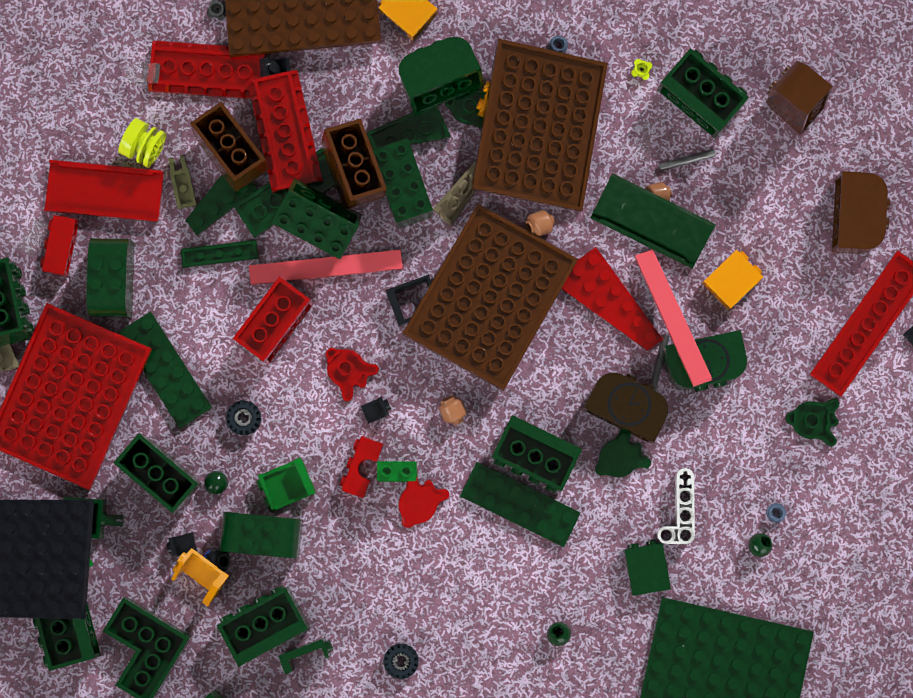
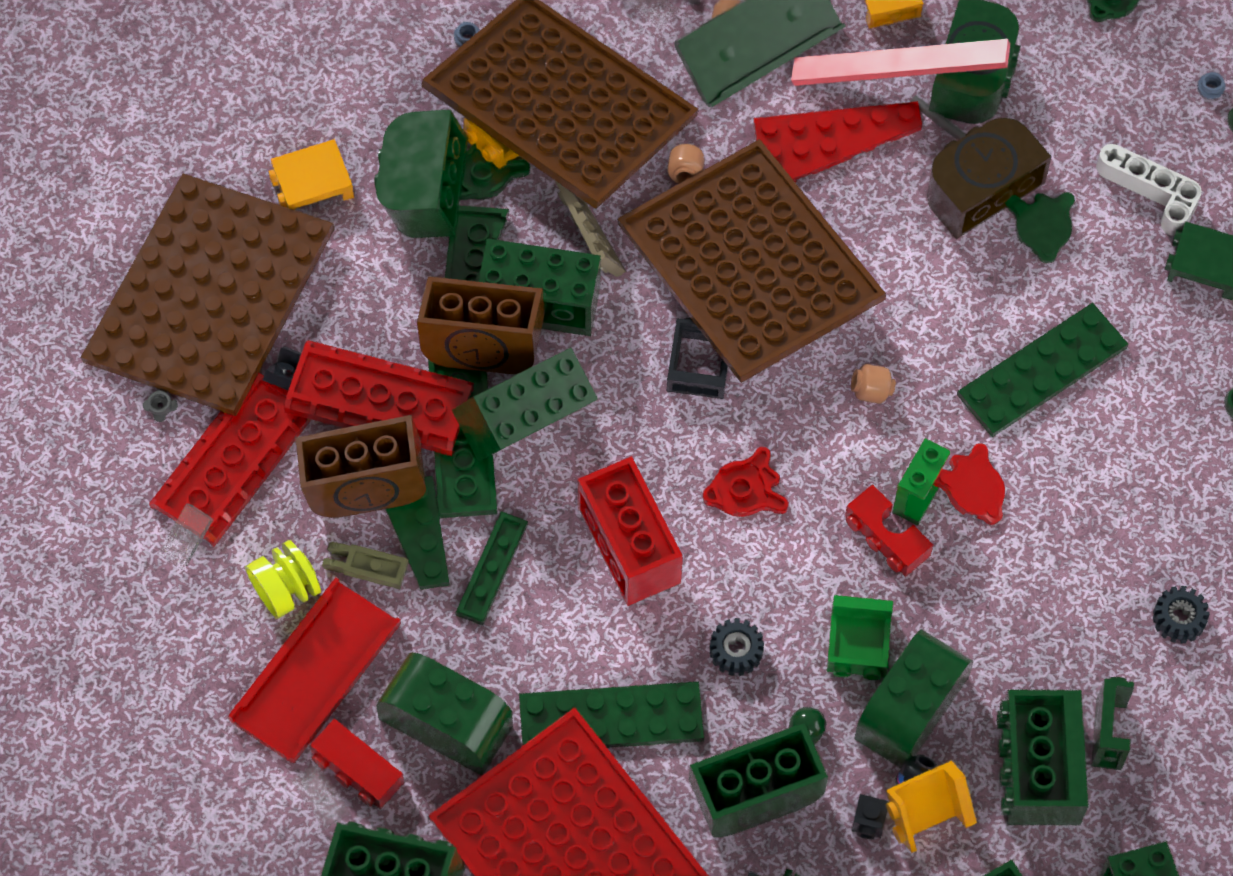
camera: 65 degrees left, 20 degrees down
(326, 267) = (589, 445): coral tile -> none
(376, 409) = (819, 476): black bracket -> none
(548, 448) = (988, 308): dark green brick -> none

